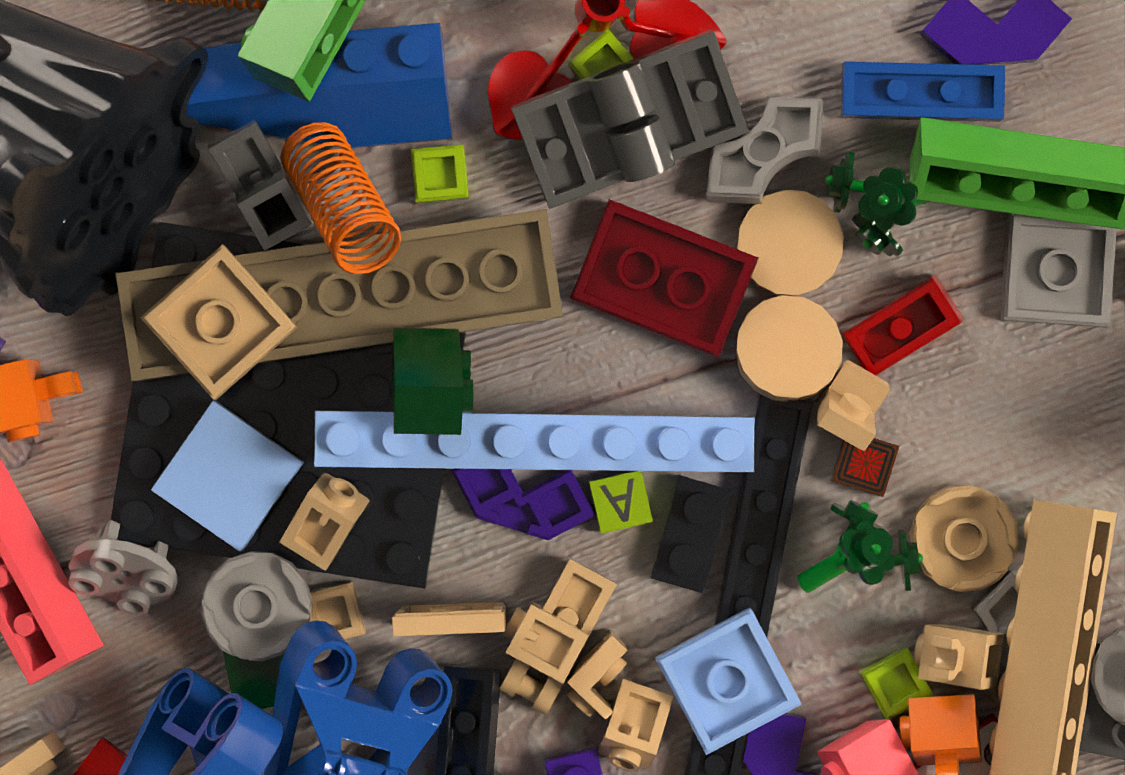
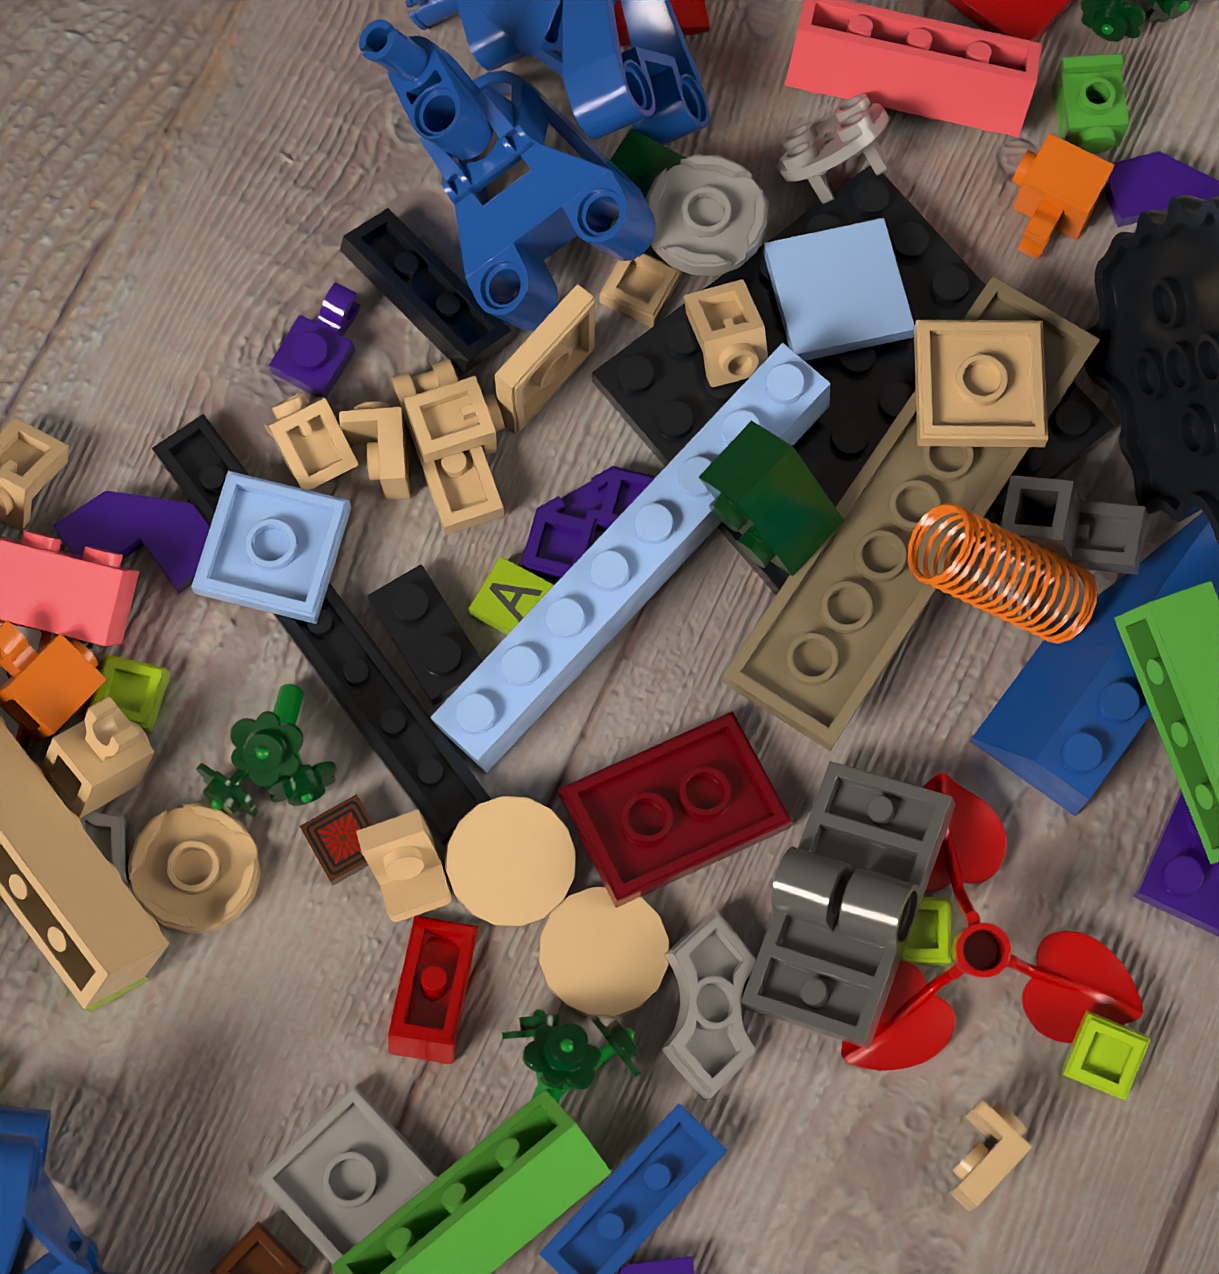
camera: 130 degrees right, 15 degrees down
(439, 174) = (946, 699): lime tile -> none

